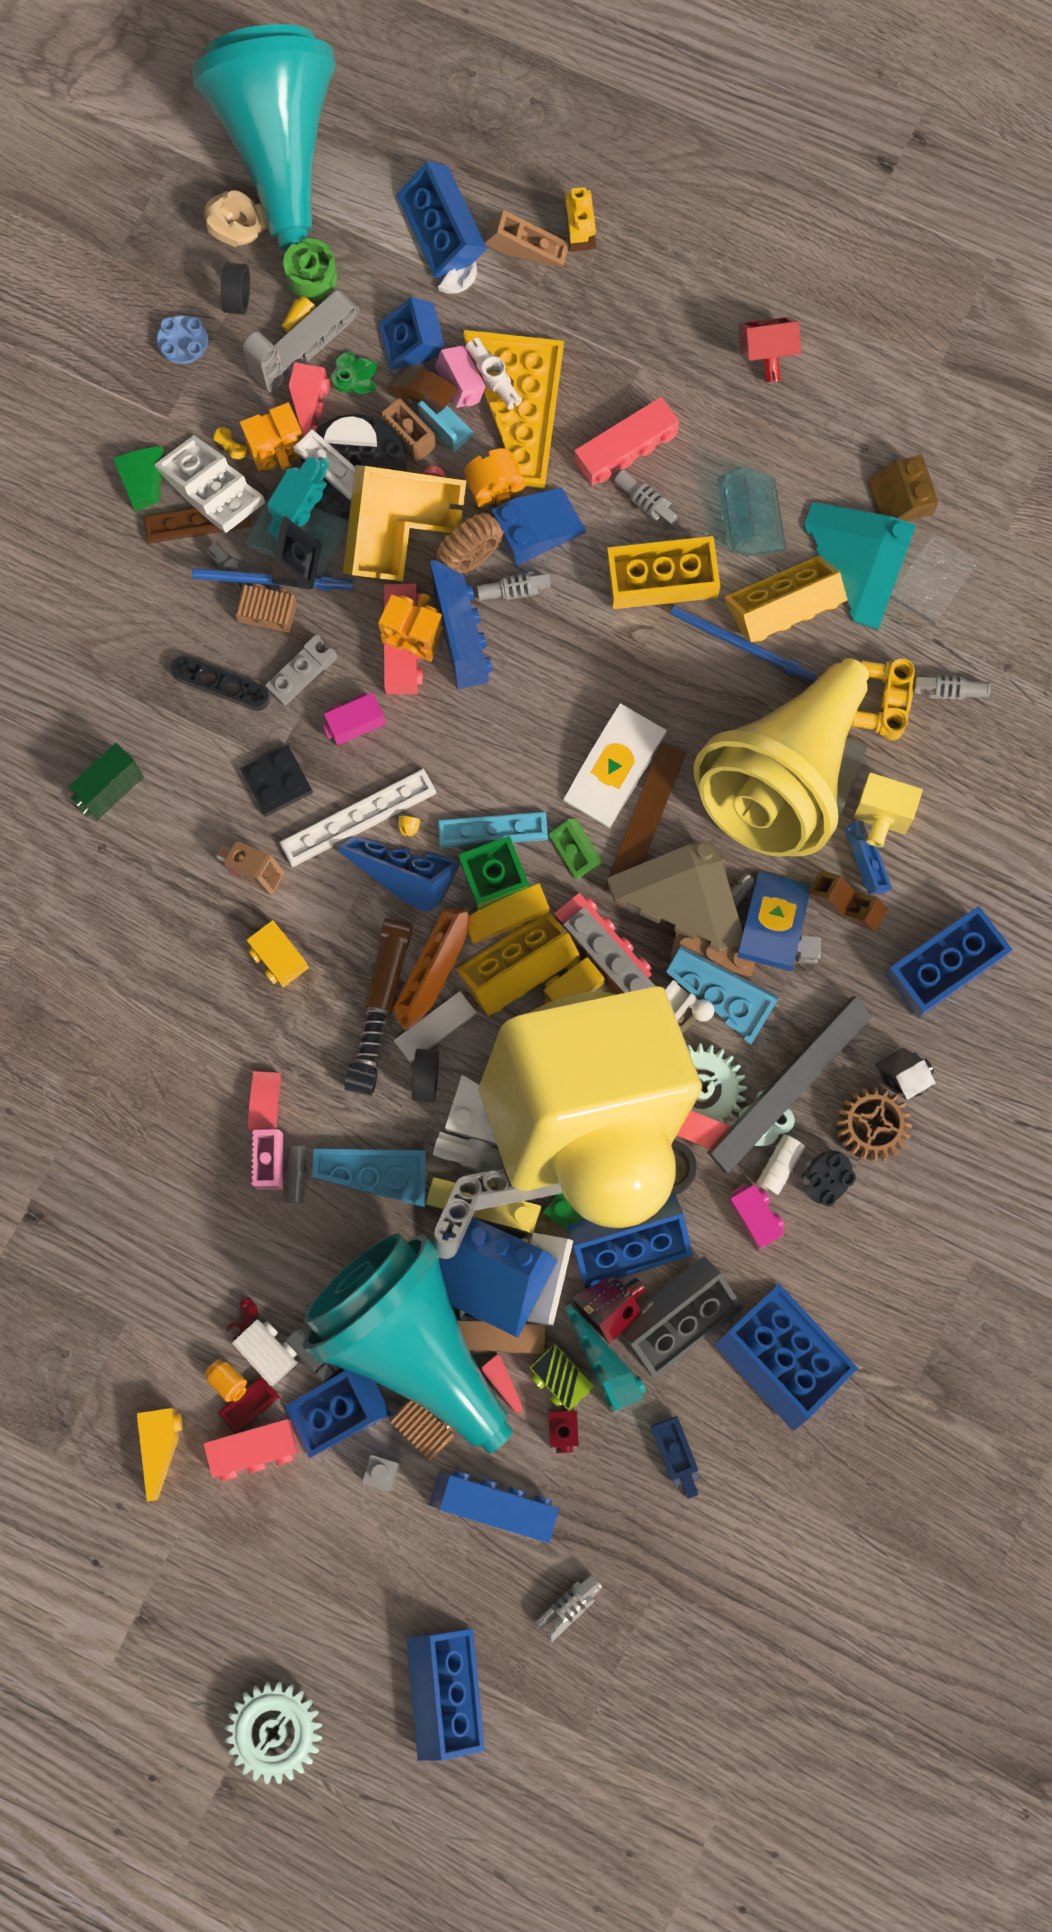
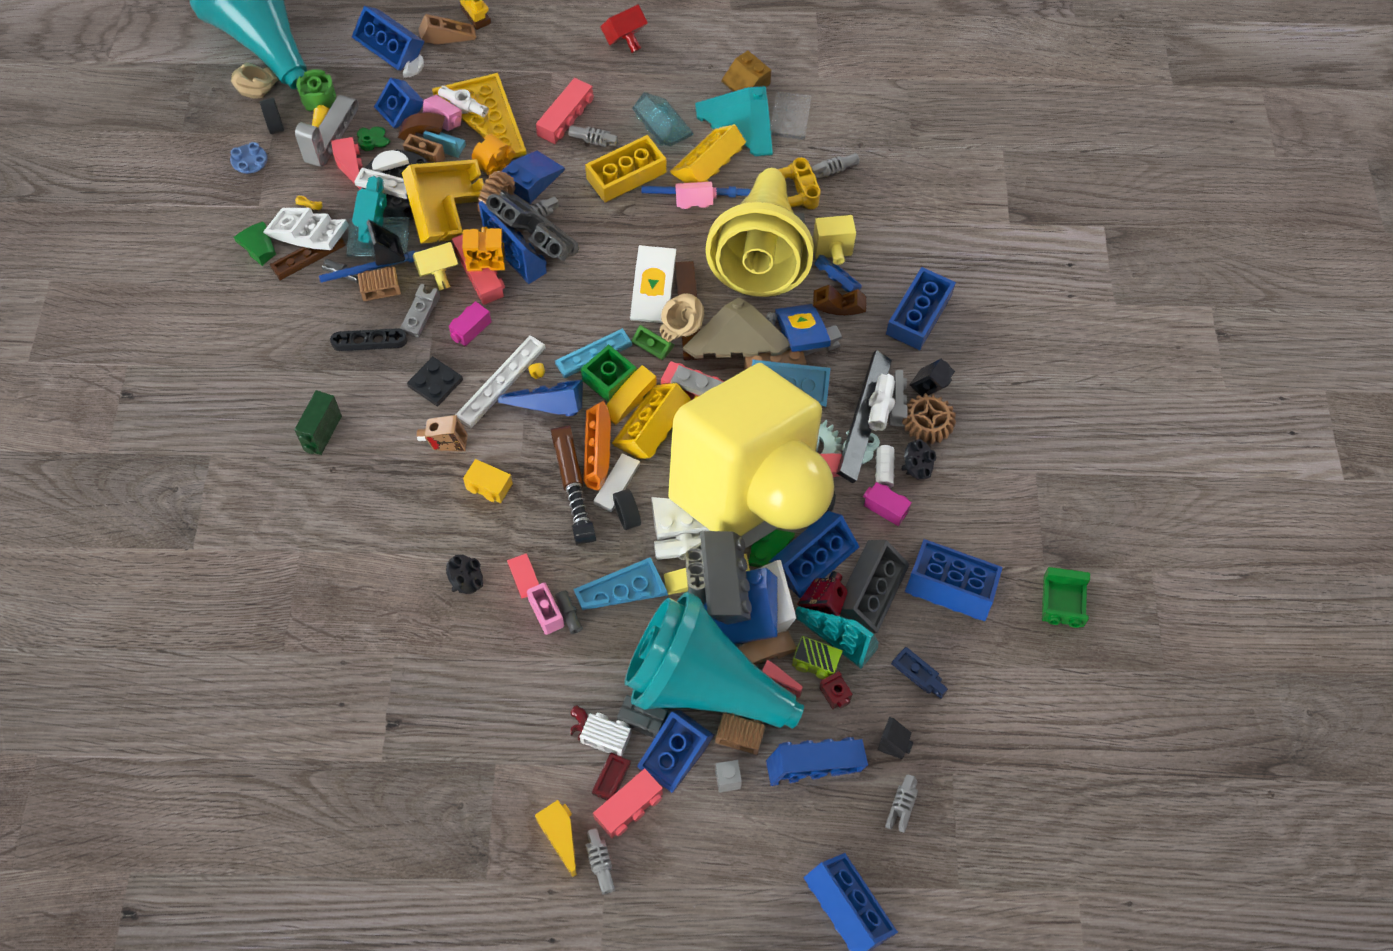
camera: 30 degrees left, 15 degrees down
(188, 1500) = (600, 861): none -> light grey hinge
(198, 1057) = (464, 574): none -> black plate
(225, 1380) = (587, 766): light orange brick -> none
(272, 438) = (336, 185): light orange brick -> none
(348, 611) = (436, 261): none -> light yellow brick
(469, 592) = (511, 210): none -> dark grey connector
(484, 1240) = (725, 576): none -> dark grey slope
(600, 1528) = (895, 739): none -> black slope
(623, 837) = (681, 317): none -> tan helmet
(736, 652) = (695, 194): none -> bright pink brick
(820, 1077) = (881, 402): none -> white piece
(838, 1097) = (900, 408): none -> light grey plate
(912, 1448) = (1065, 597): none -> green panel

